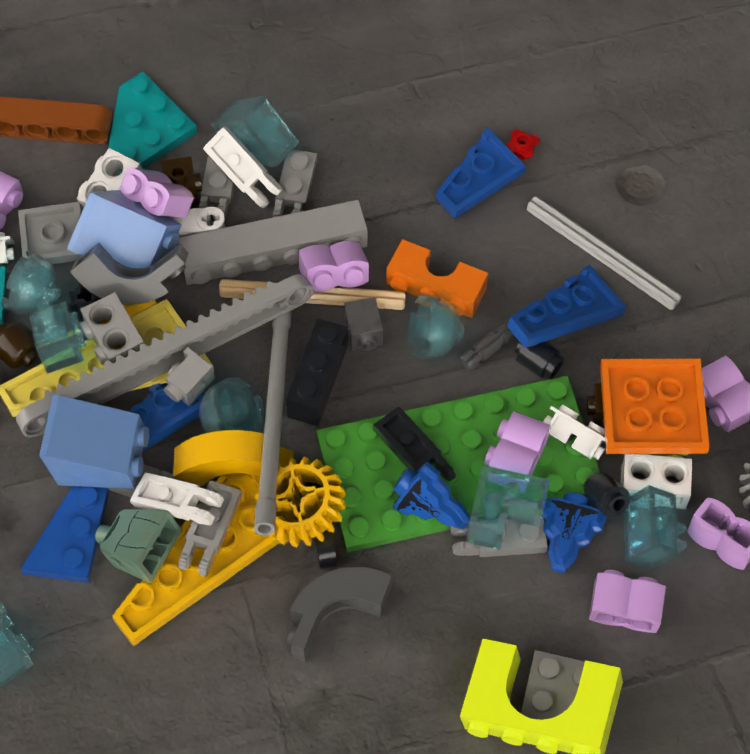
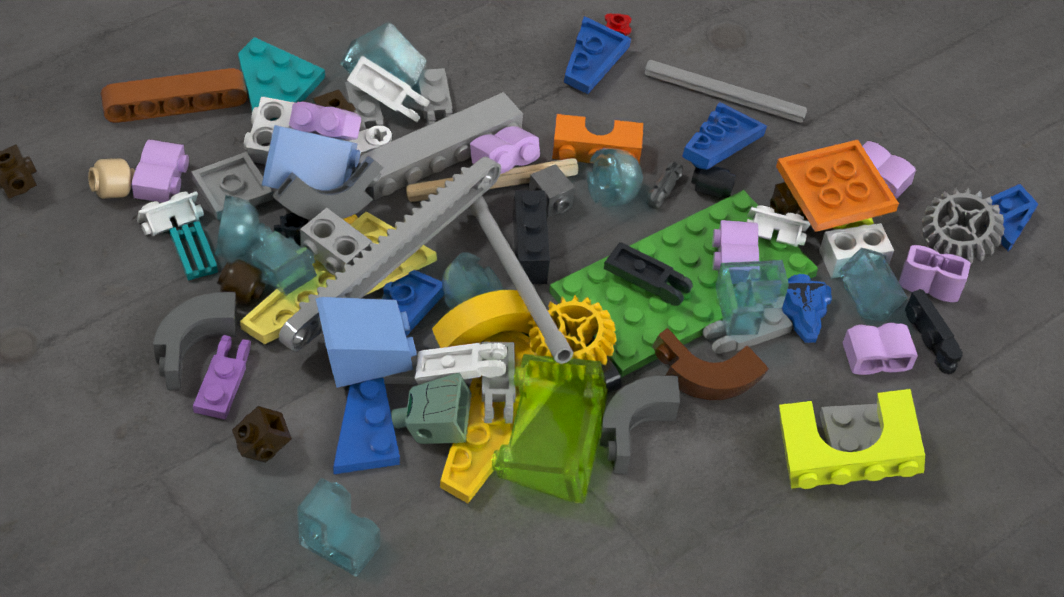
camera: 25 degrees left, 10 degrees down
(188, 378) = (423, 263): light grey brick -> none
(242, 598) = (555, 427): none -> clear neon green windscreen
(428, 587) = (705, 378): none -> reddish brown arch
(429, 497) = (680, 305): blue rock -> none
(606, 494) = (825, 267): black brick -> none
(696, 600) = (934, 331): none -> black hinge

